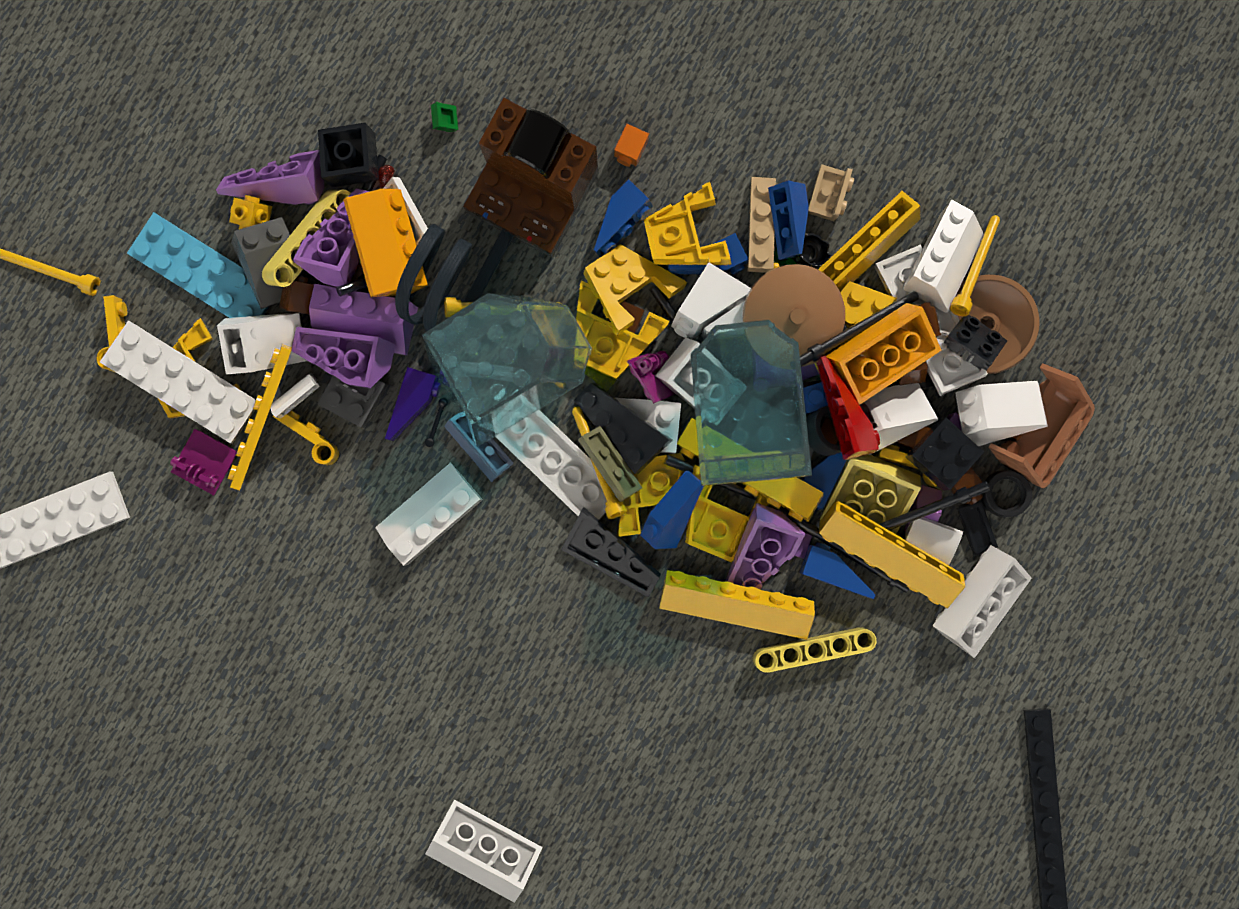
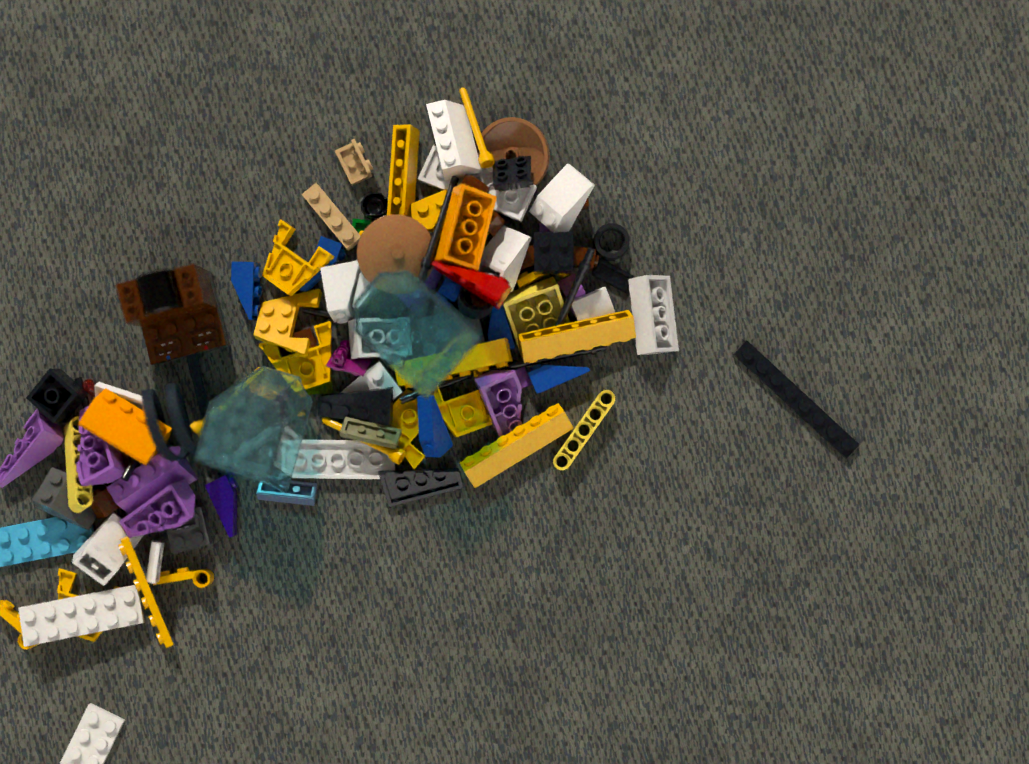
camera: 40 degrees left, 0 degrees up
(203, 462) = (138, 648): magenta hinge -> none
(249, 212) = (30, 481): yellow brick -> none
(428, 514) = (295, 557): white slope -> none
(443, 402) = (244, 486): black hinge -> none
(444, 117) = (92, 322): green plate -> none
(484, 851) = (502, 717): white slope -> none
(631, 145) = (215, 240): orange brick -> none
(789, 217) = (343, 197): blue slope -> none
(1043, 451) = (605, 170): nougat windscreen -> none

